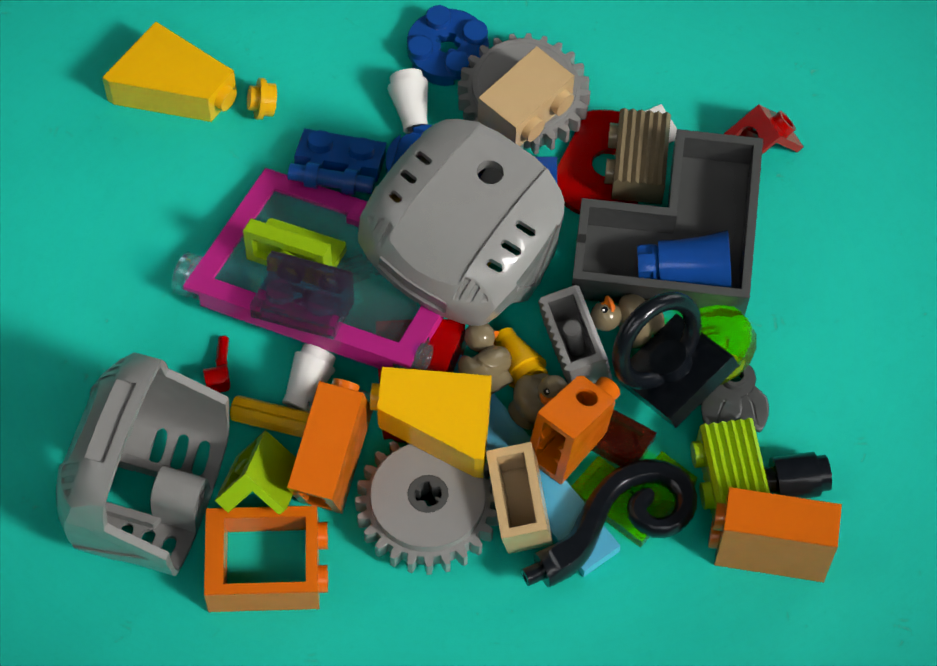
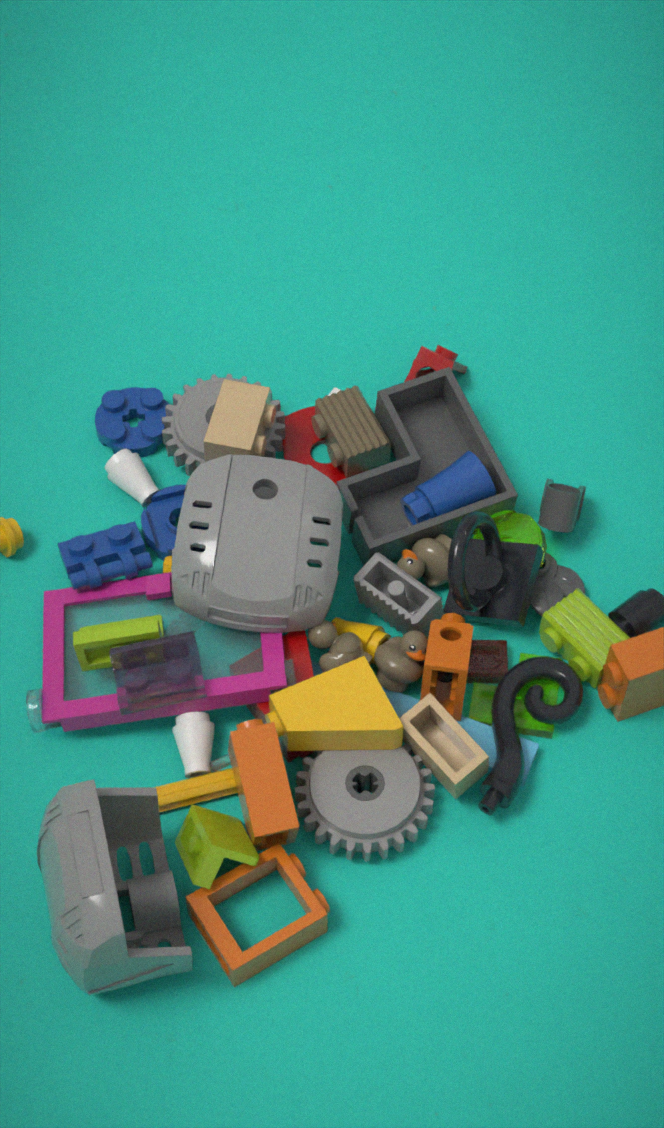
camera: 30 degrees left, 5 degrees down
(218, 377) = (116, 778): red hand -> none
(793, 331) = (560, 506): none -> dark grey piece

